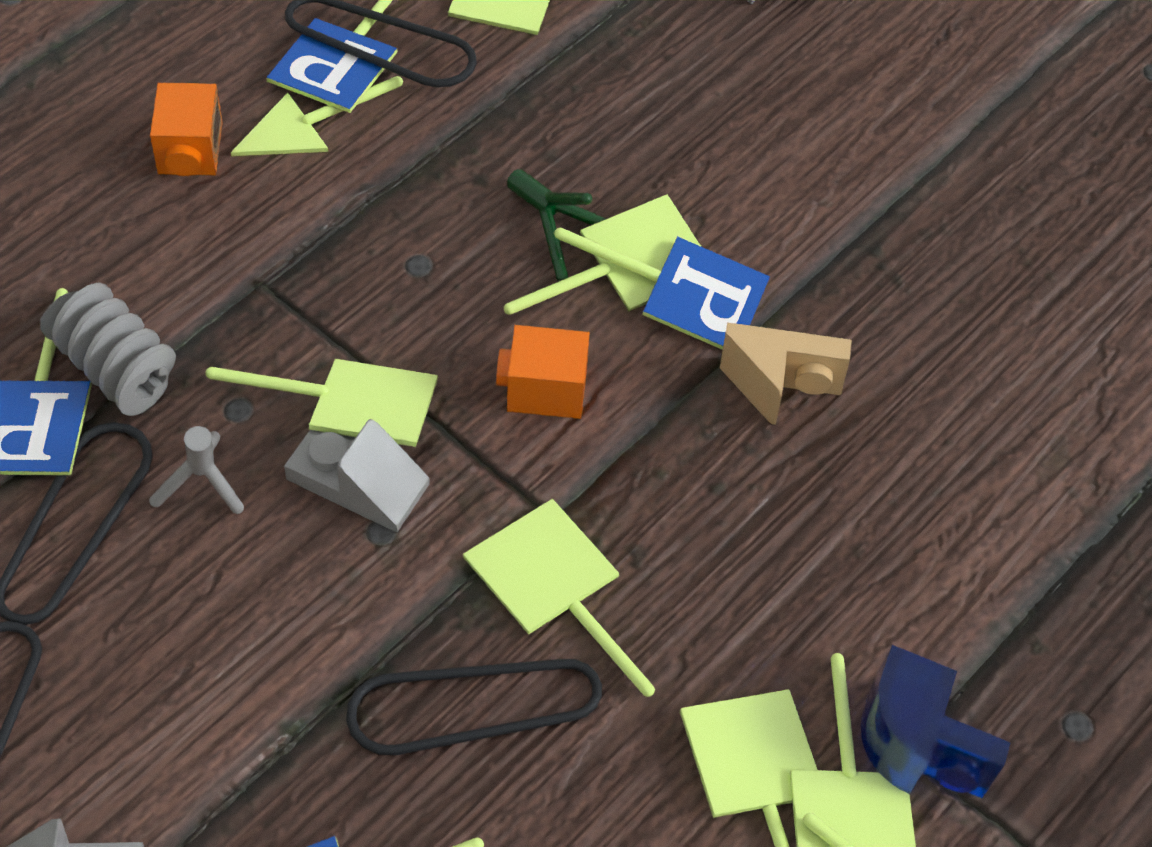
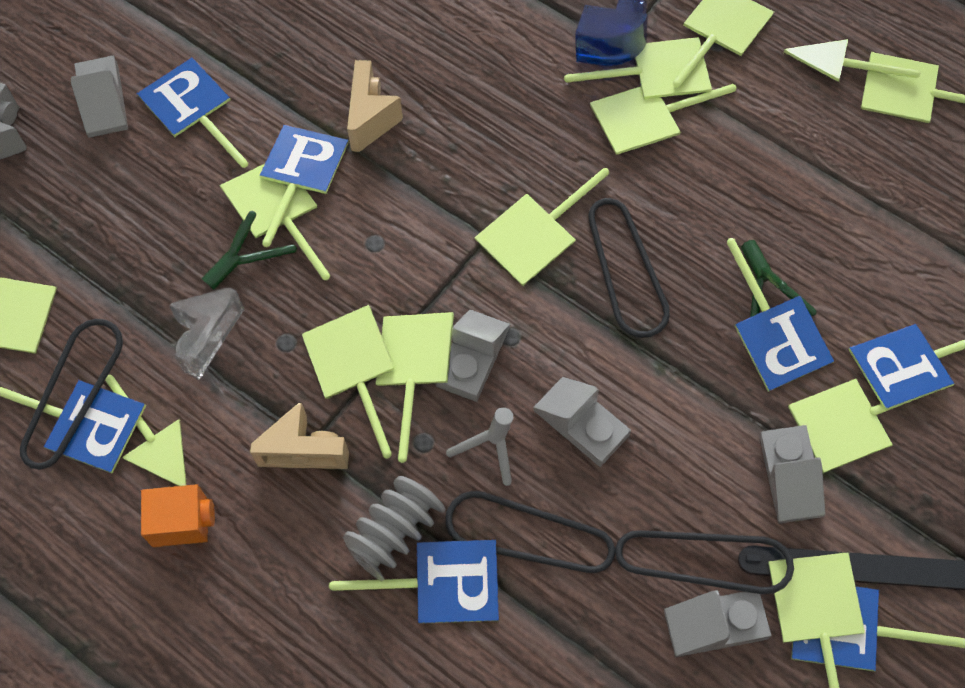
camera: 90 degrees left, 10 degrees up
(229, 597) = (576, 414): none -> light grey slope
(253, 251) = (289, 447): none -> tan slope
(372, 331) = (347, 356): none -> yellowish green piece
(443, 171) = (210, 321): none -> clear slope
(545, 371) = (384, 241): orange brick -> none
(819, 165) = (186, 98): none -> blue piece
(820, 71) = (100, 96): none -> light grey slope

